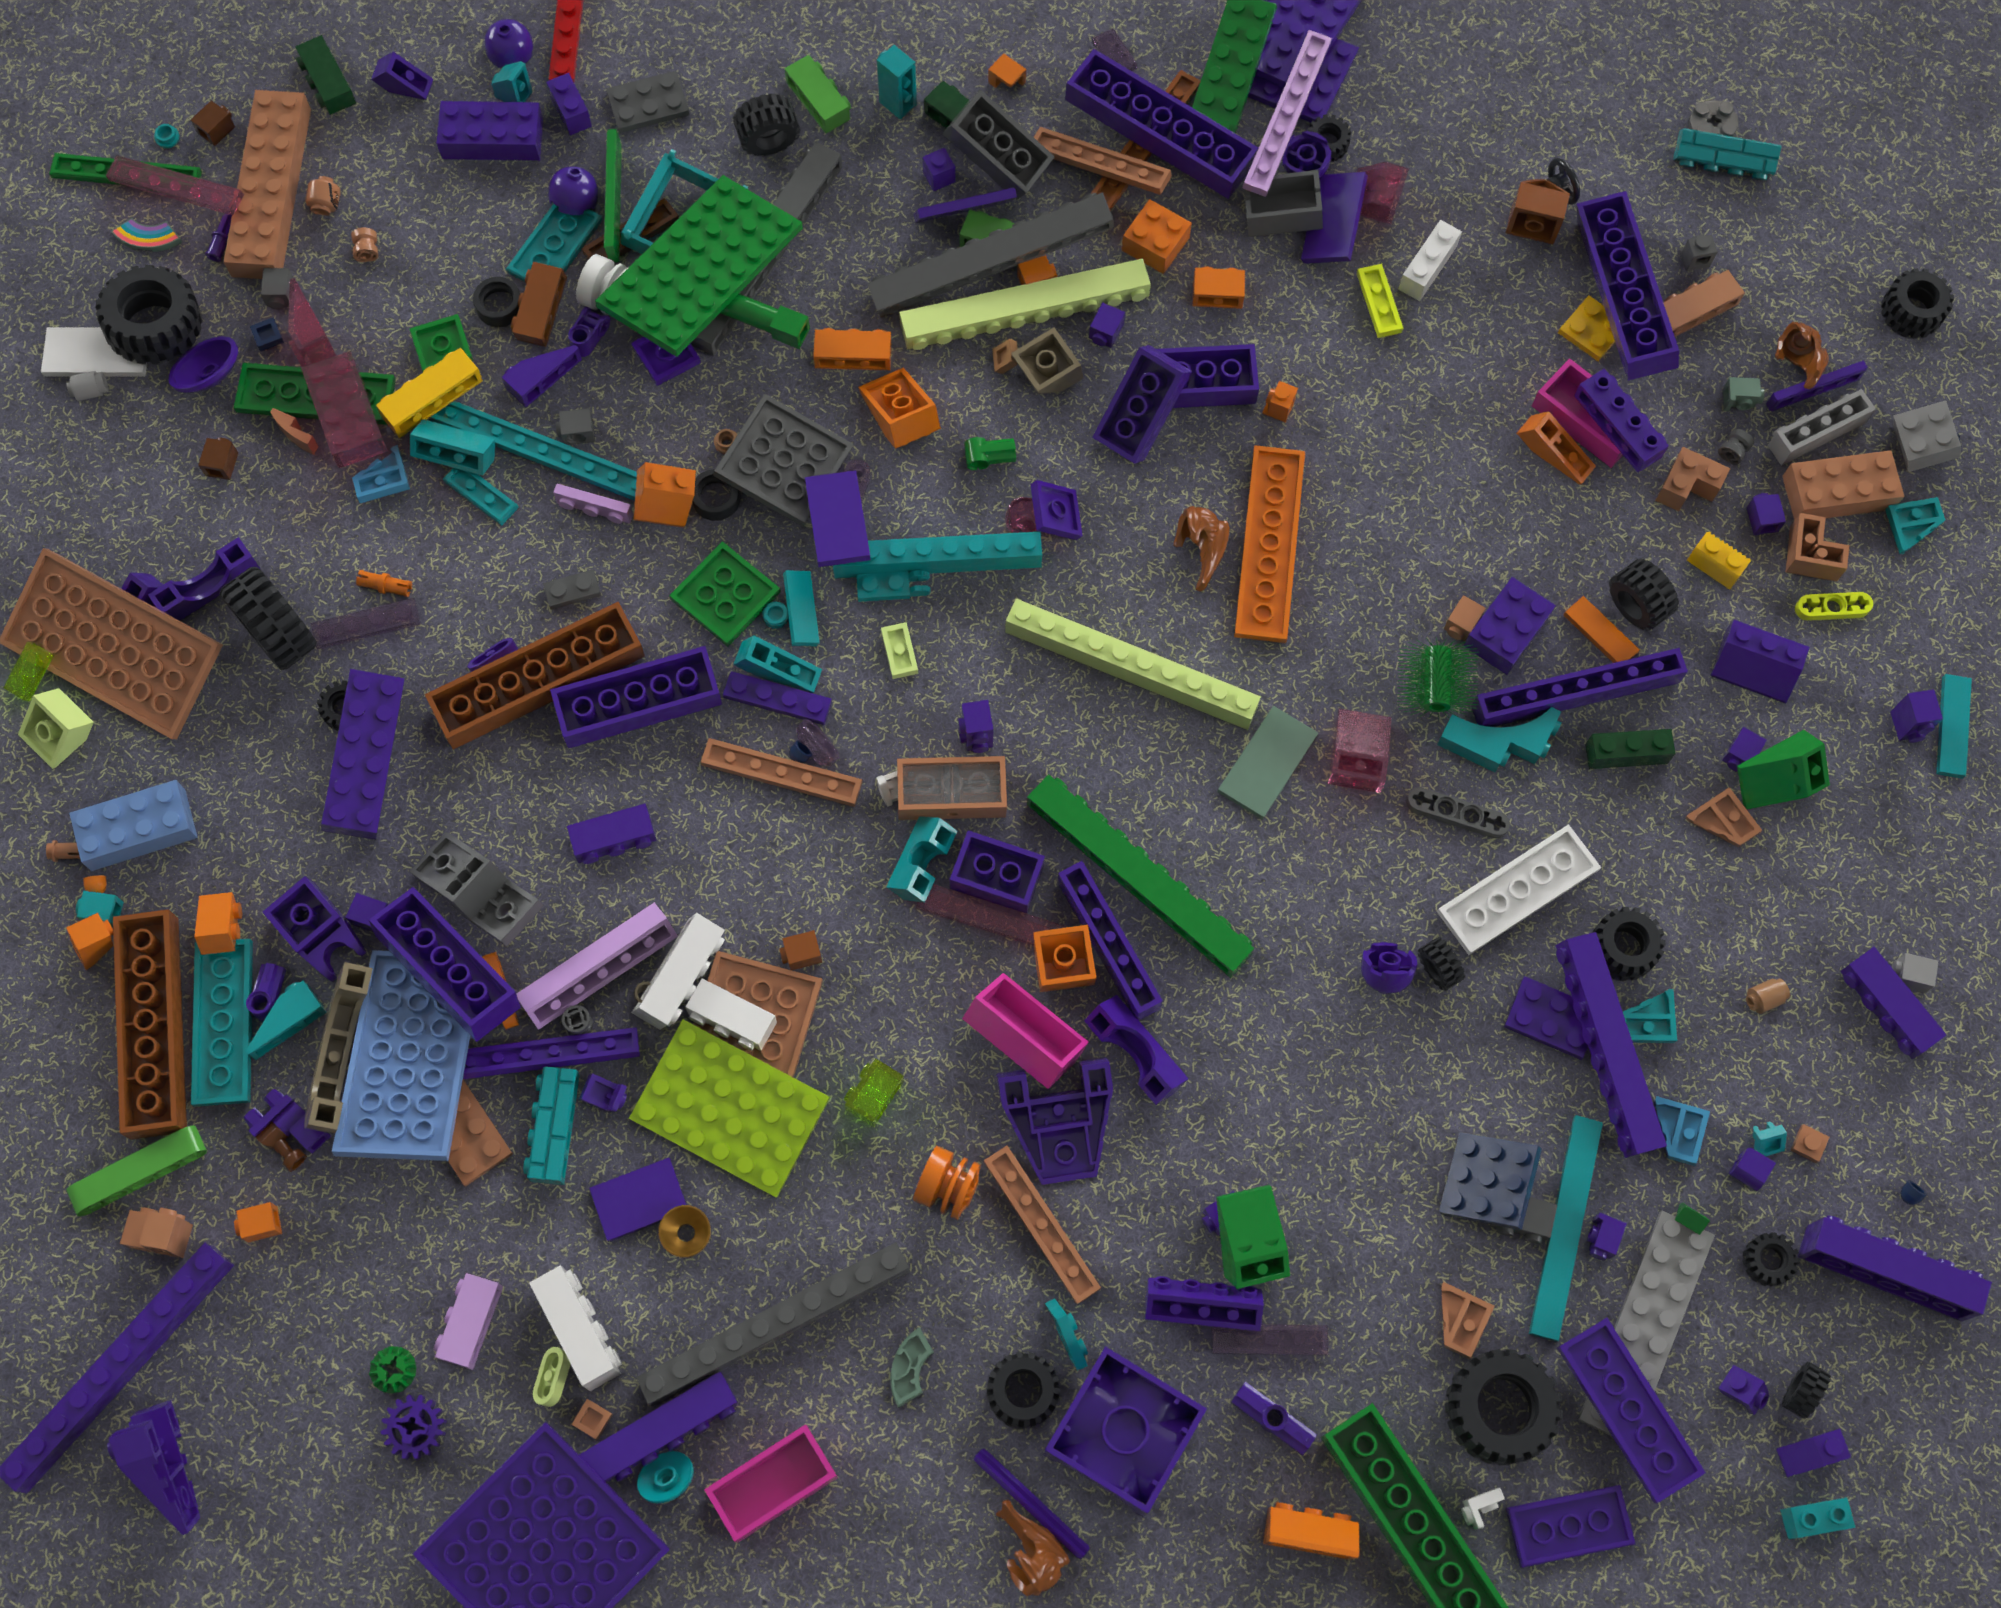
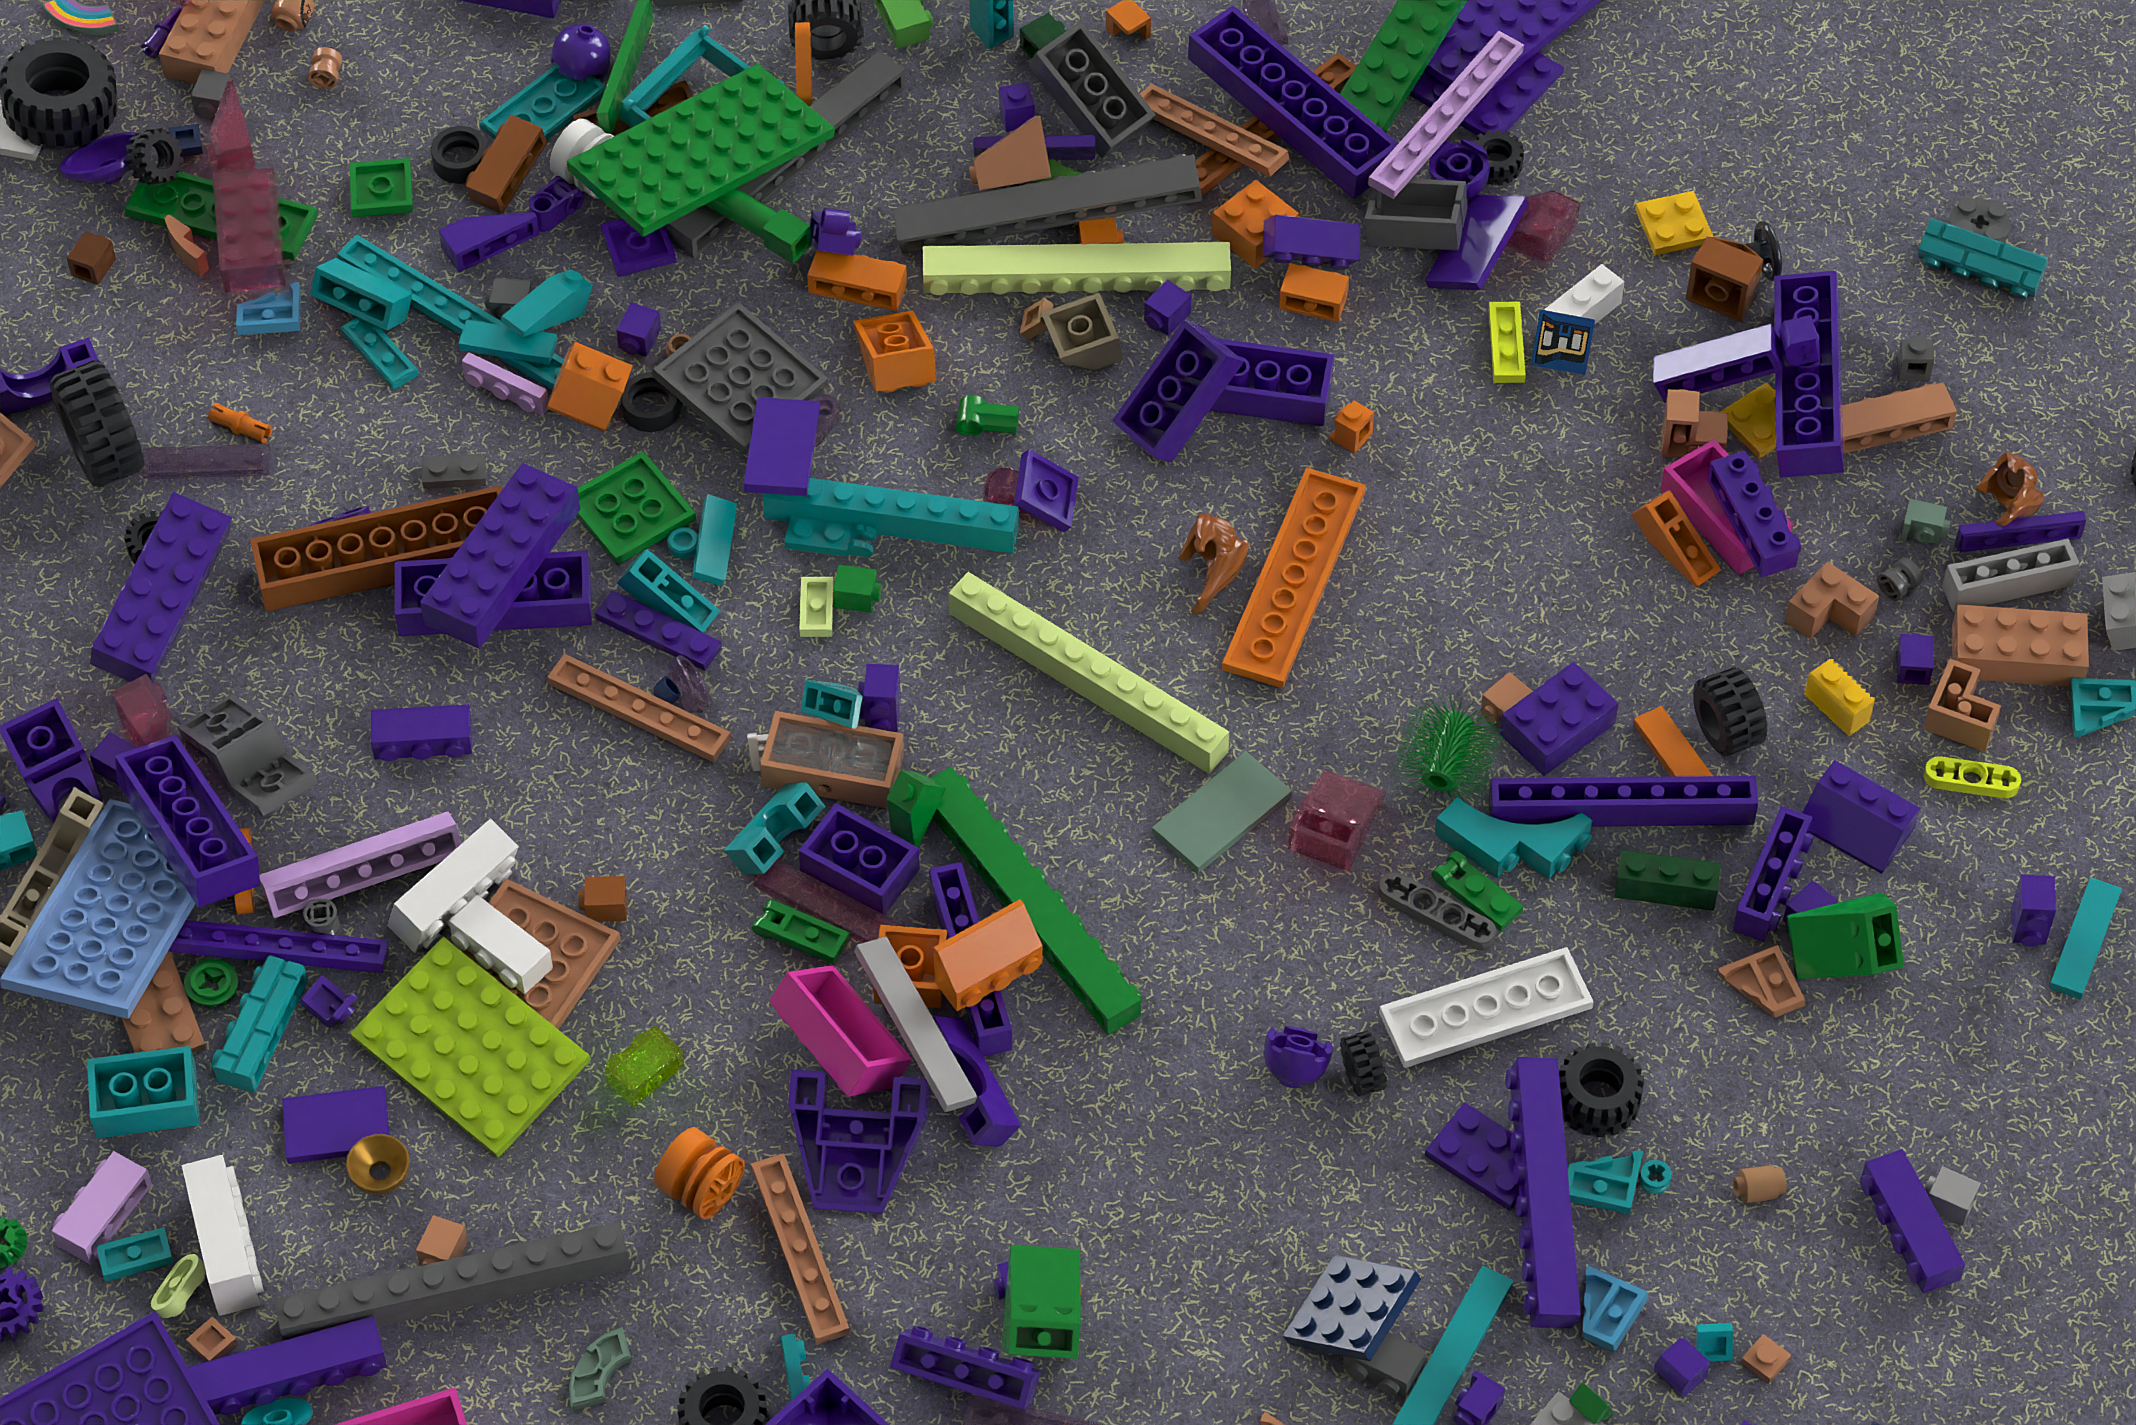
camera: 15 degrees right, 15 degrees down
(235, 362) = (141, 160): none -> black tyre
(381, 871) = (142, 711): none -> clear pink slope
(429, 392) = (351, 230): yellow brick -> none
(474, 1212) = (143, 1092): none -> teal brick
(501, 1084) = (215, 971): none -> green gear
(507, 1356) = (134, 1254): none -> teal plate
(585, 466) = (506, 343): none -> teal tile
(611, 426) = (550, 304): none -> teal slope
(637, 669) = (500, 555): none -> dark purple brick
(688, 432) = (638, 329): none -> dark purple brick
(755, 1291) = (441, 1241): none -> nougat brick
(759, 166) = (803, 62): none -> orange beam
(825, 315) = (834, 231): none -> dark purple hinge
(928, 628) = (856, 588): none -> green brick
(942, 740) = (832, 702): none -> teal slope
(955, 221) = (1013, 159): none -> nougat slope
(966, 943) = (801, 931): none -> green plate
(1029, 815) = (912, 805): none -> green slope
(1087, 1016) = (915, 1024): none -> light grey tile
(1132, 948) = (987, 956): none -> orange slope
(1208, 246) = (1311, 241): none -> dark purple brick
(1426, 294) = (1562, 342): none -> sticker
(1480, 168) = (1673, 222): none -> yellow plate
(1484, 788) = (1477, 891): none -> green plate
(1544, 349) = (1687, 427): none -> nougat brick
(1555, 290) = (1719, 362): none -> brick
(1620, 262) = (1799, 341): none -> dark purple piece
(1694, 1006) = (1655, 1166): none -> teal bush
(1710, 727) = (1772, 874): none -> dark purple brick

